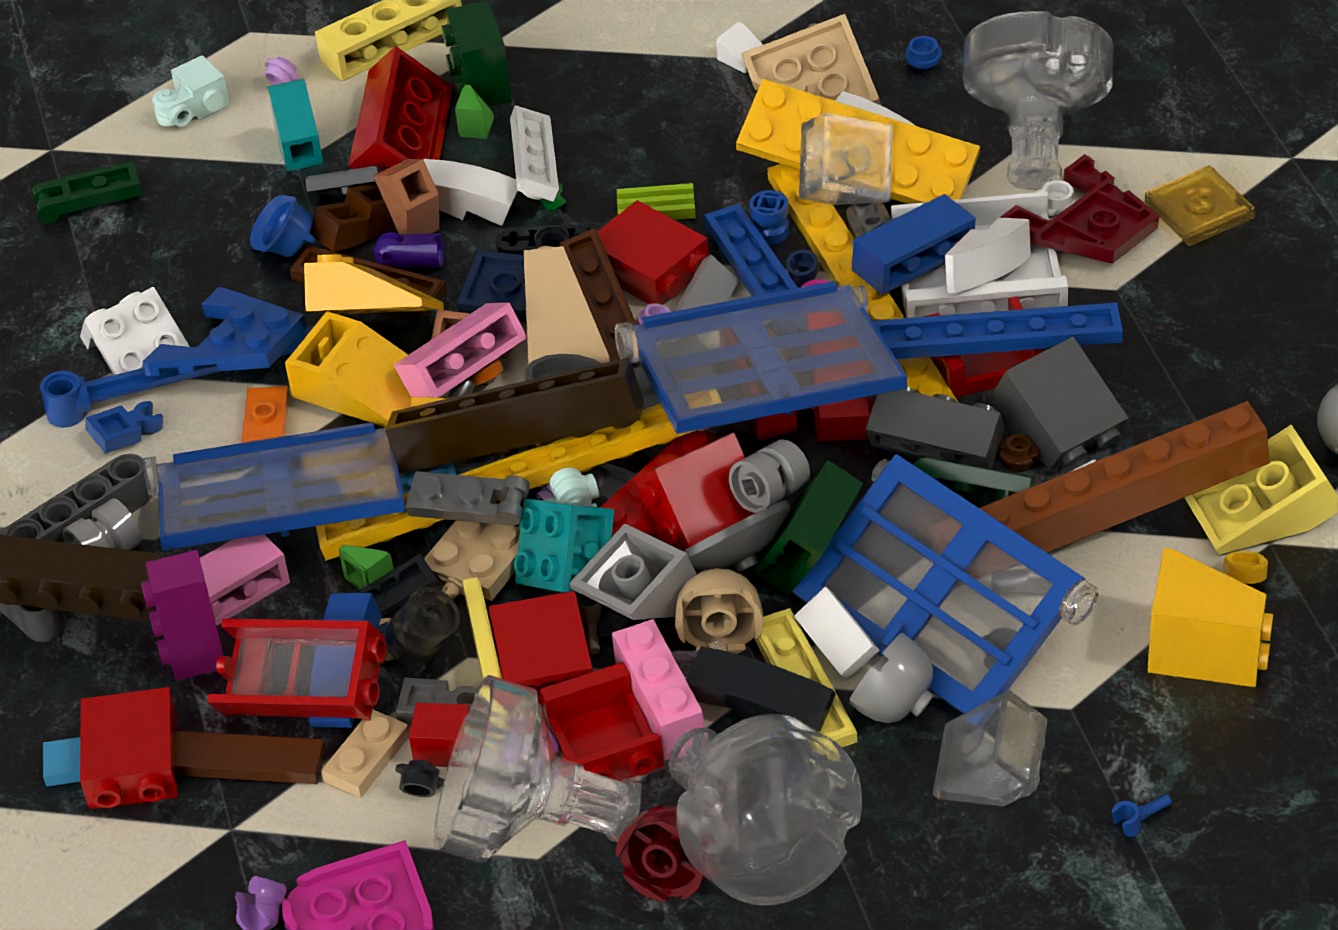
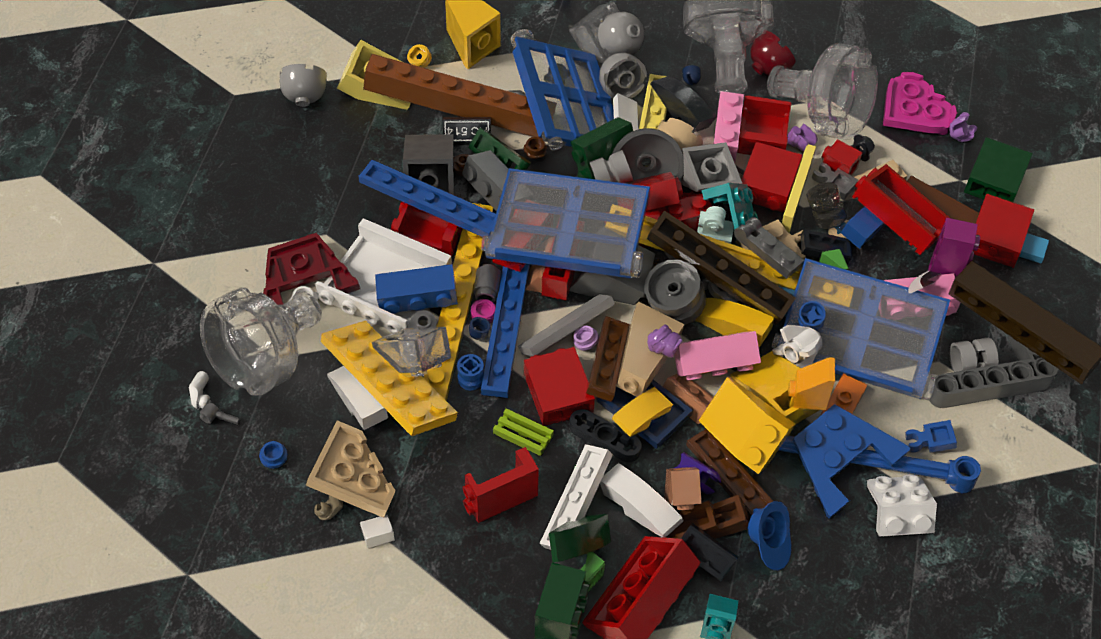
camera: 155 degrees left, 10 degrees up
(167, 846) = (998, 171): none -> dark green brick
(215, 553) = (922, 281): none -> sticker
(298, 324) = (813, 385): none -> light orange slope
(350, 409) = (800, 345): none -> white brick
(353, 441) = (812, 311): none -> blue wheel
(496, 100) = (579, 537): none -> dark green slope
(506, 263) = (641, 411): none -> yellow slope
(529, 293) = (664, 341): none -> medium lavender arm
(622, 110) = (504, 490): none -> red panel
(944, 740) = (621, 33): none -> light grey cylinder
(987, 254) = (387, 254): white slope -> none
(1199, 205) = (234, 255): clear yellow tile -> none

